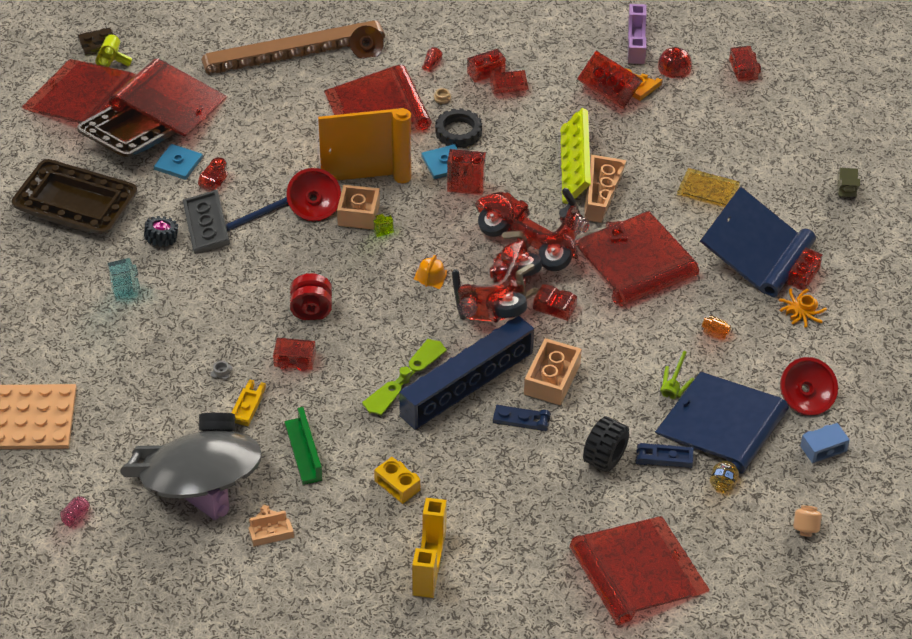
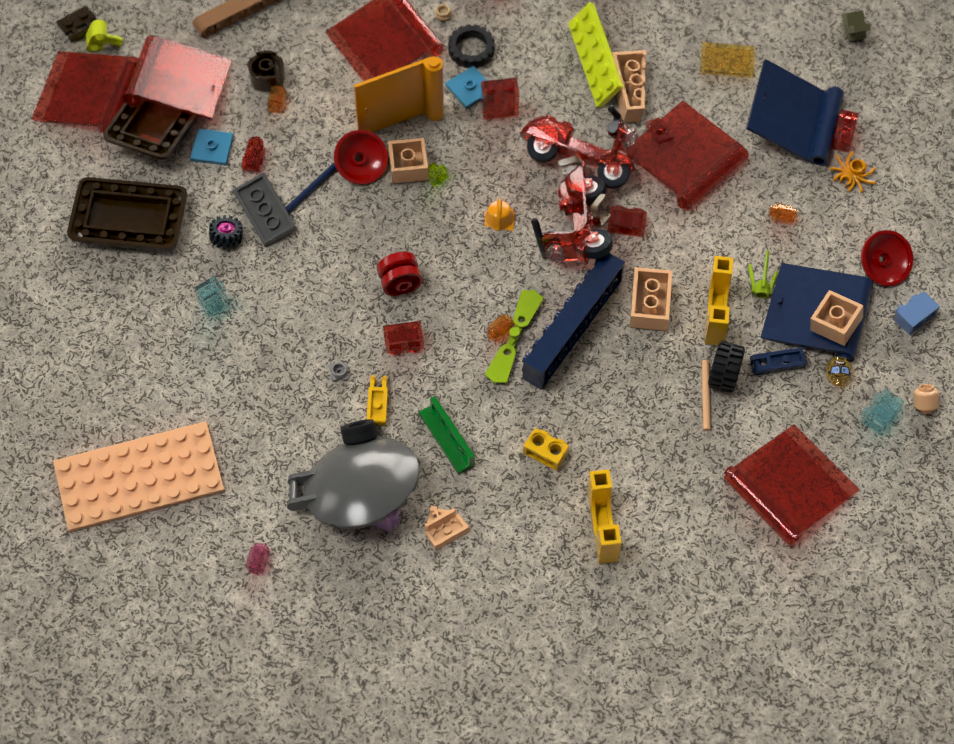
camera: 15 degrees left, 15 degrees up
(253, 109) = (266, 70): none -> dark brown brick
(254, 134) = (276, 99): none -> clear orange brick
(390, 366) = (499, 327): none -> clear orange brick
(521, 417) = (635, 353): dark blue plate -> none
(576, 480) = (706, 396): none -> light nougat bar
(615, 395) = (717, 309): none -> yellow arch
(734, 423) = (836, 318): none -> light nougat brick
(757, 522) = (882, 411): none -> clear light blue brick

